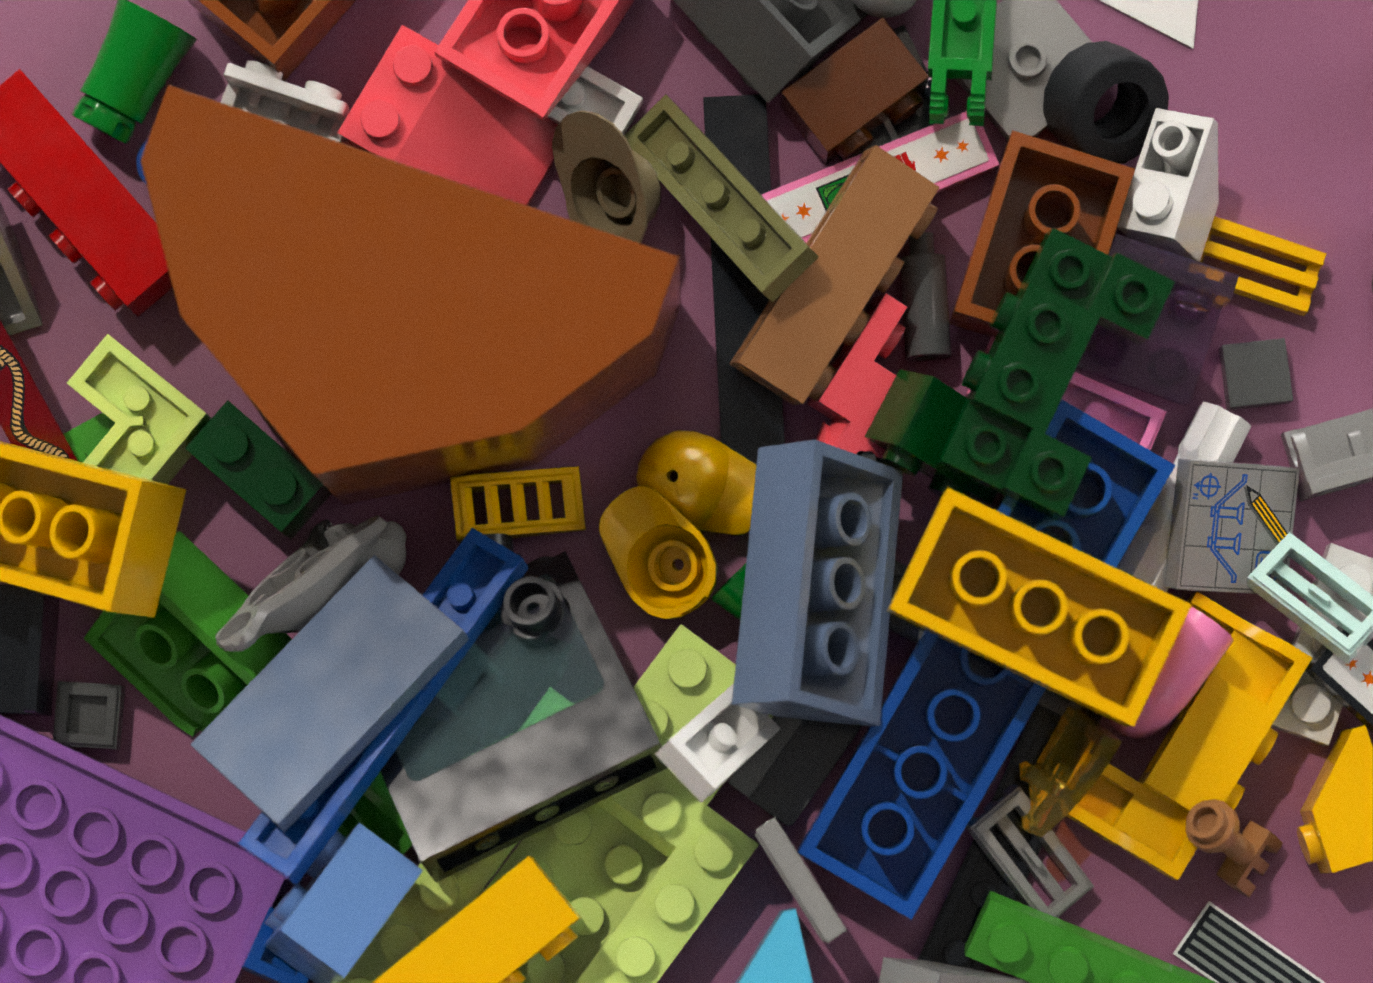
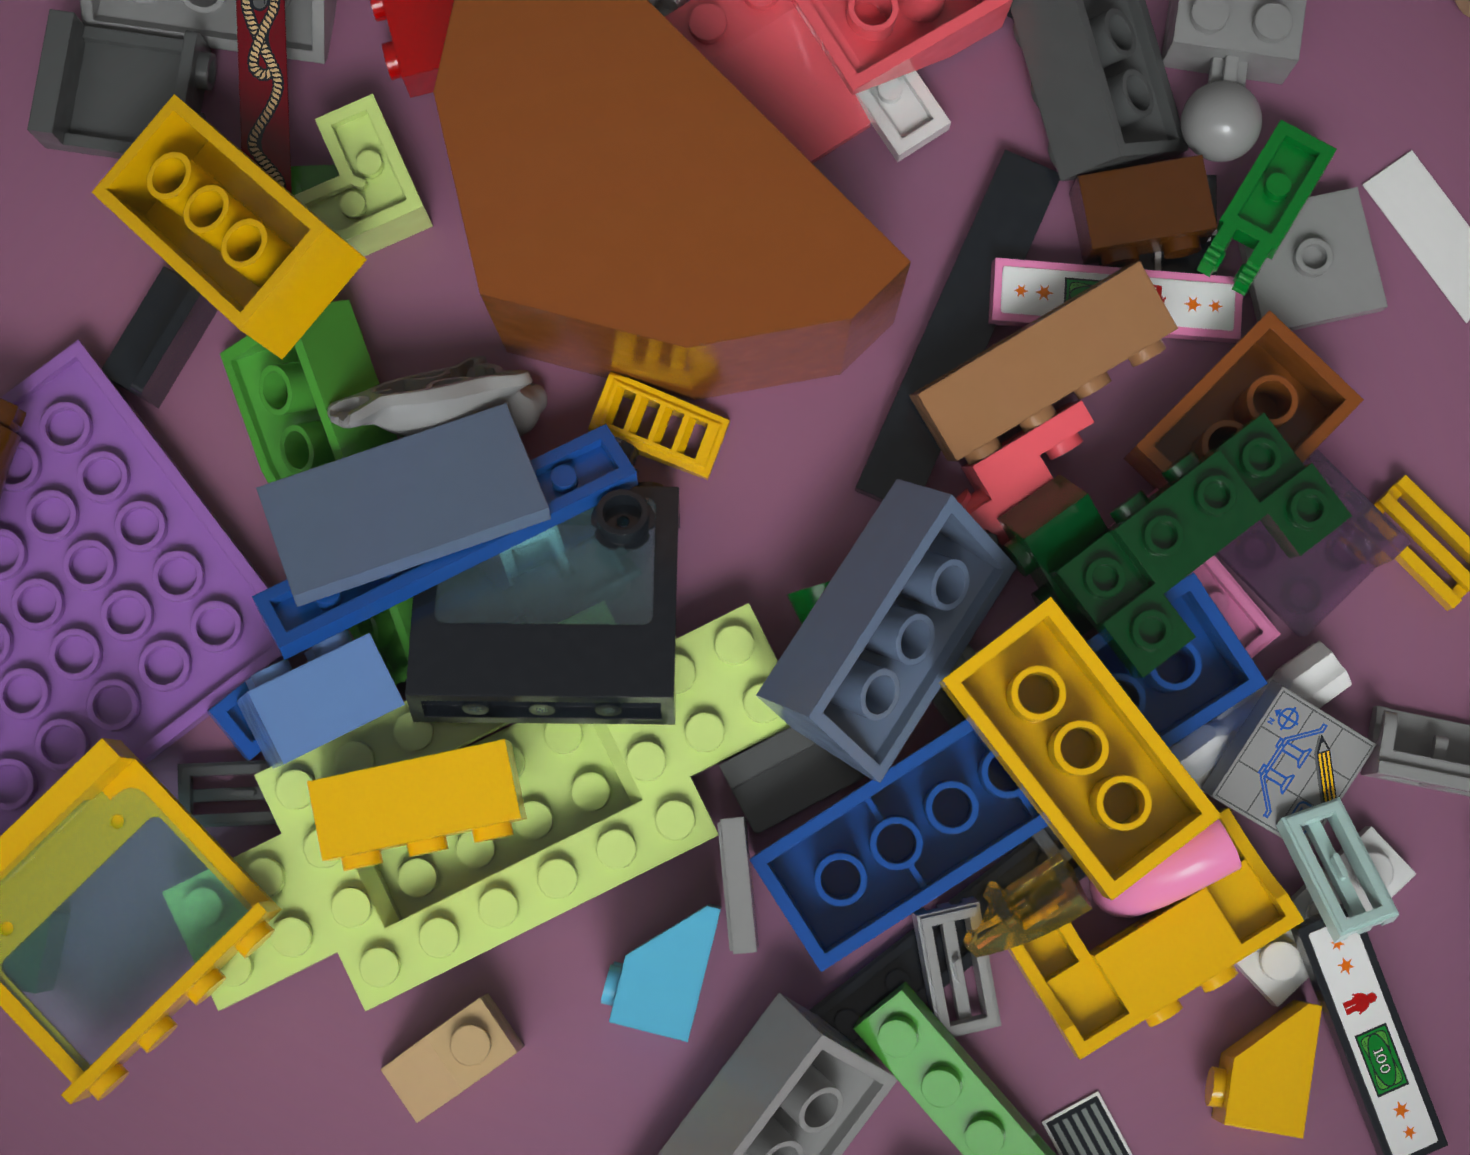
camera: 25 degrees right, 0 degrees up
(89, 715) = (190, 423): dark grey tile -> none
(258, 470) = (444, 281): dark green brick -> none
(603, 177) = (882, 169): dark tan piece -> none
(645, 540) = (752, 516): yellow cap -> none
(712, 480) = (837, 494): yellow cap -> none
(716, 744) = (723, 725): white slope -> none
(720, 198) = (975, 243): olive plate -> none
(926, 301) = (1113, 428): dark grey cylinder -> none
(1080, 83) = (1385, 355): black tyre -> none
(1174, 185) = (1392, 432): white slope -> none
(1215, 828) = (1138, 1031): medium nougat hinge -> none
(1255, 374) = (1378, 640): dark grey tile -> none

